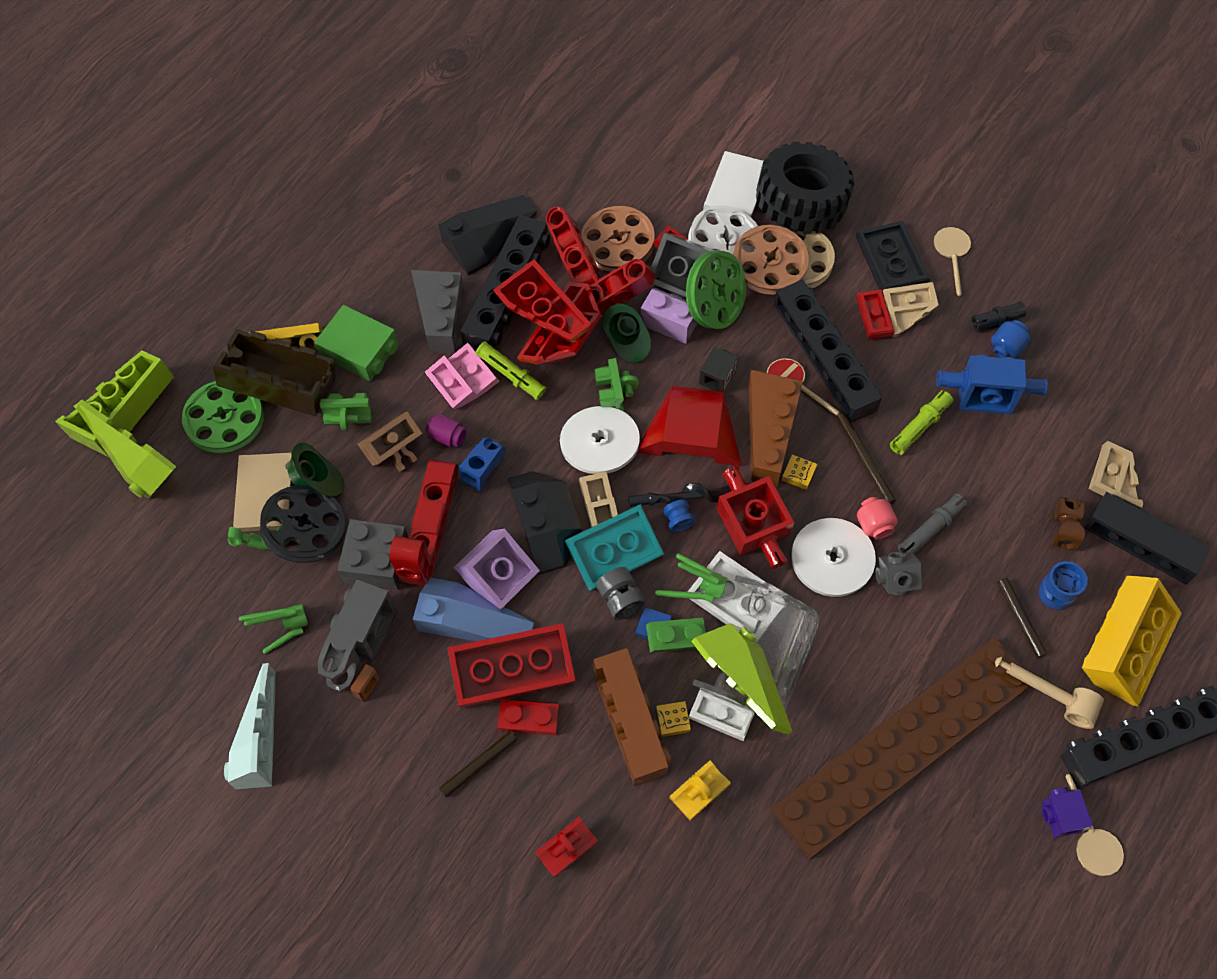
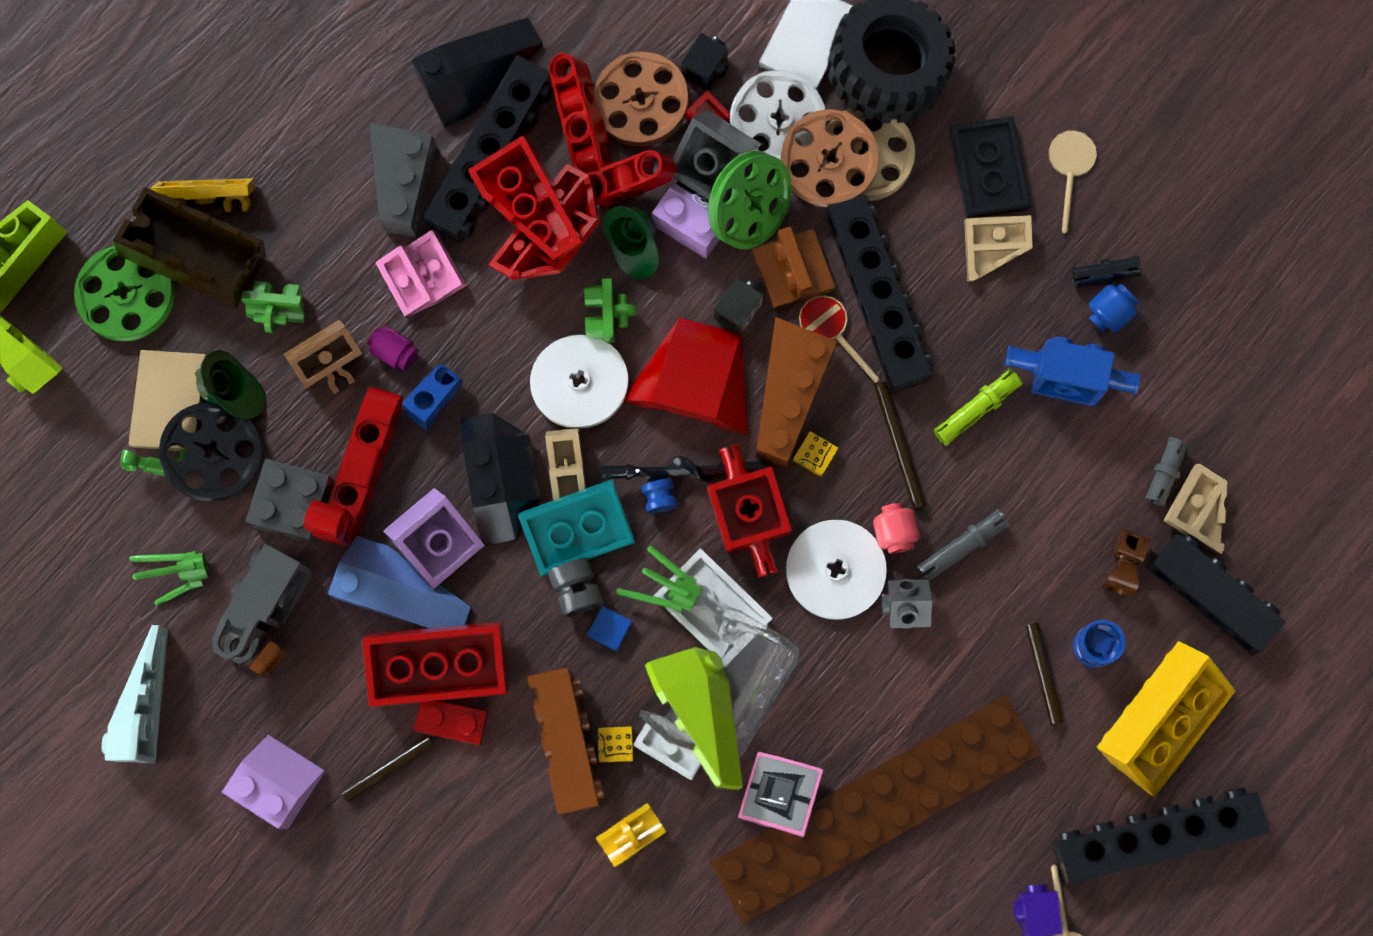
camera: 10 degrees right, 15 degrees up
(357, 342) = (295, 213): bright green brick -> none
(378, 787) = (274, 782): none -> lavender slope
(513, 372) = (481, 276): lime pin -> none
(566, 847) = (473, 879): red hips -> none
(663, 207) = (705, 61): none -> black brick
(674, 634) = (632, 646): bright green plate -> none
(755, 340) = (793, 268): none -> dark orange bracket
(823, 740) = (780, 794): none -> slope
(875, 314) = (950, 249): red plate -> none
(1081, 706) = (1085, 792): tan piece -> none
(1082, 452) = (1166, 471): none -> dark grey pin

